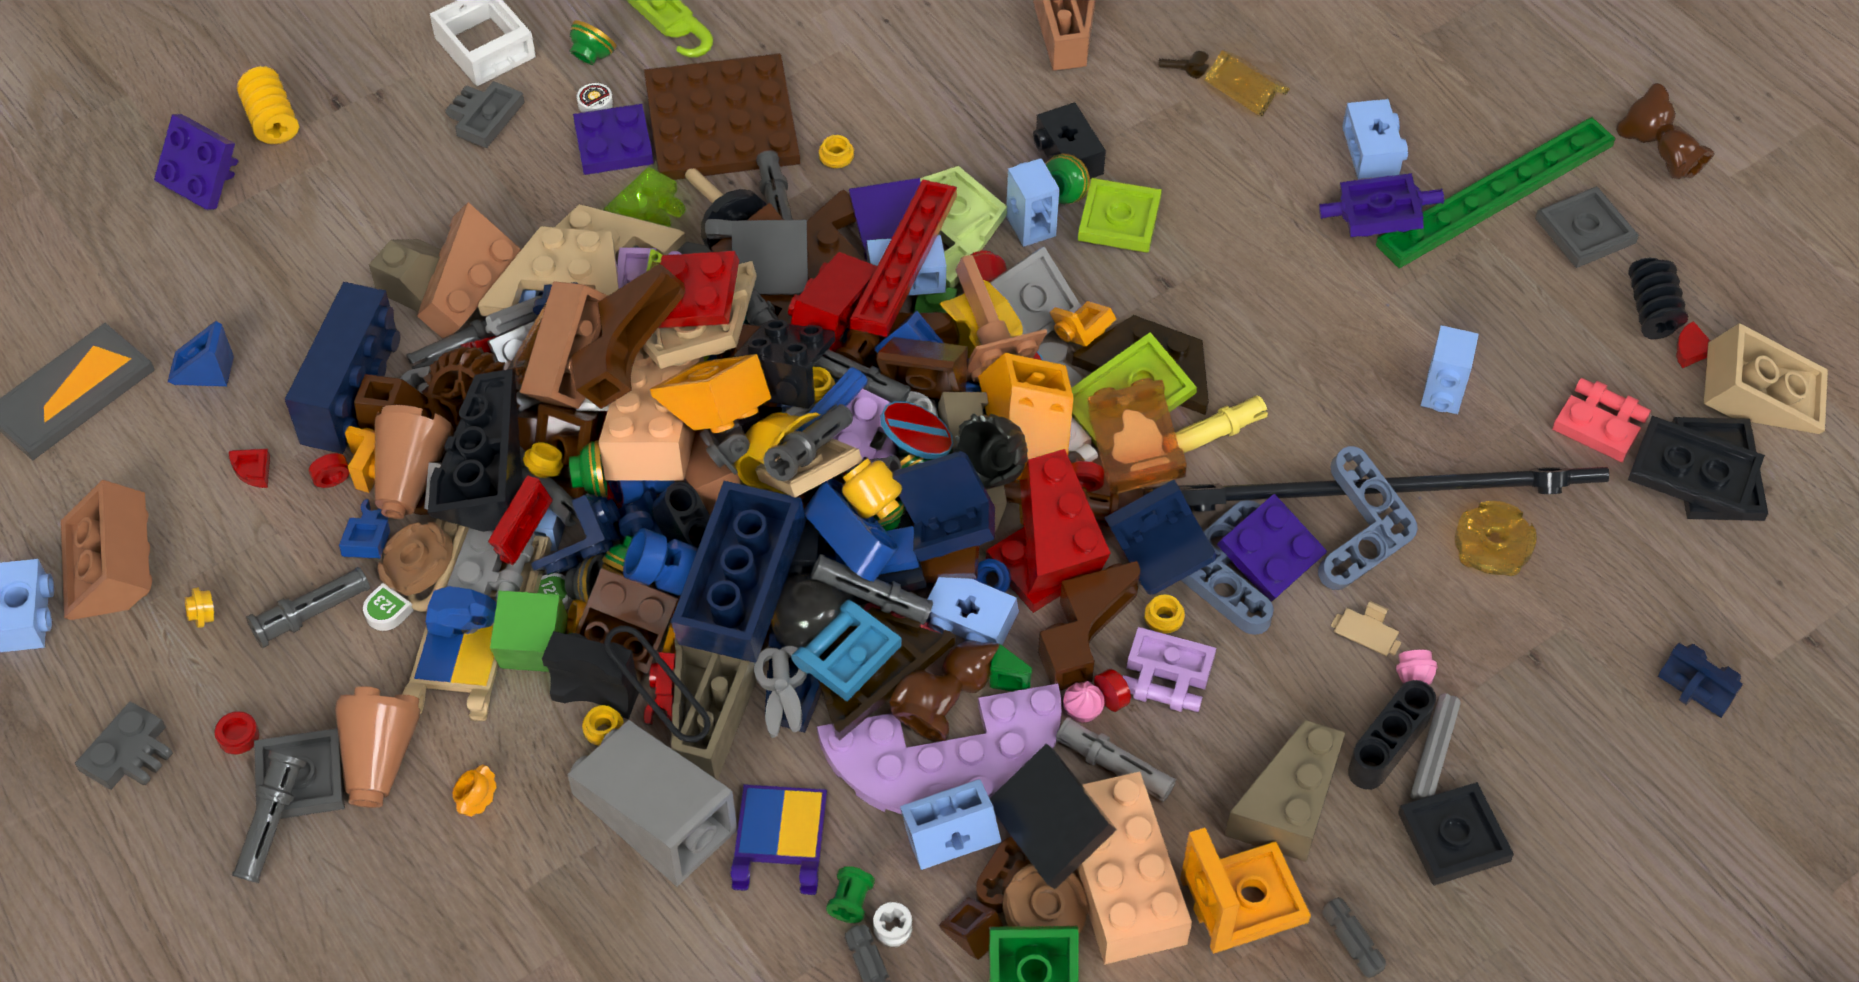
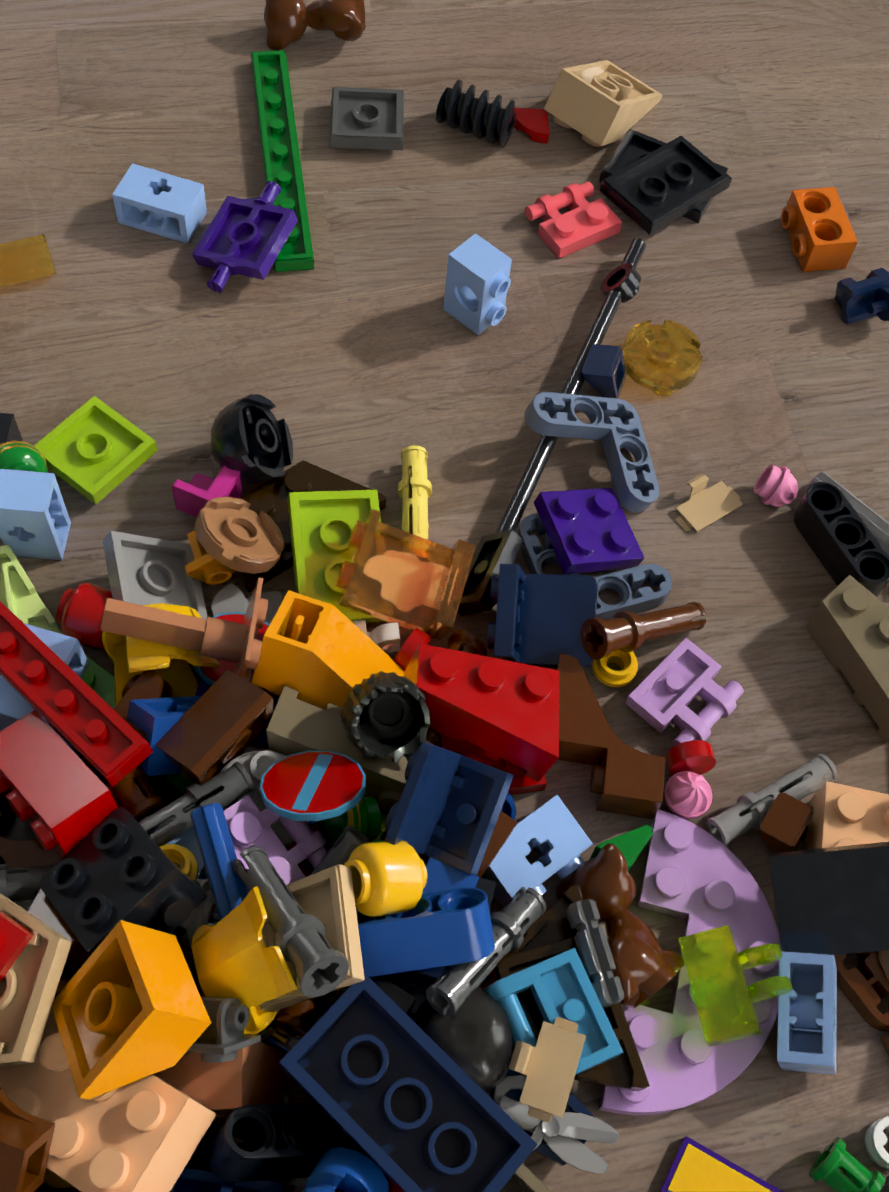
camera: 70 degrees left, 5 degrees up
(811, 651) = (549, 1068): none -> tan piece
(909, 658) = (595, 951): none -> dark grey axle
(938, 756) = (721, 986): none -> clear neon green hinge
(1094, 763) = (786, 823): none -> reddish brown slope
(1097, 322) = (239, 535): none -> medium nougat tile
(1130, 299) = (201, 489): none -> dark pink panel
(1187, 598) = (629, 631): none -> reddish brown pin
(1189, 297) = (252, 440): none -> black cylinder
(1441, 502) = (605, 370): none -> dark blue slope
(1750, 612) = (818, 229): none -> orange brick

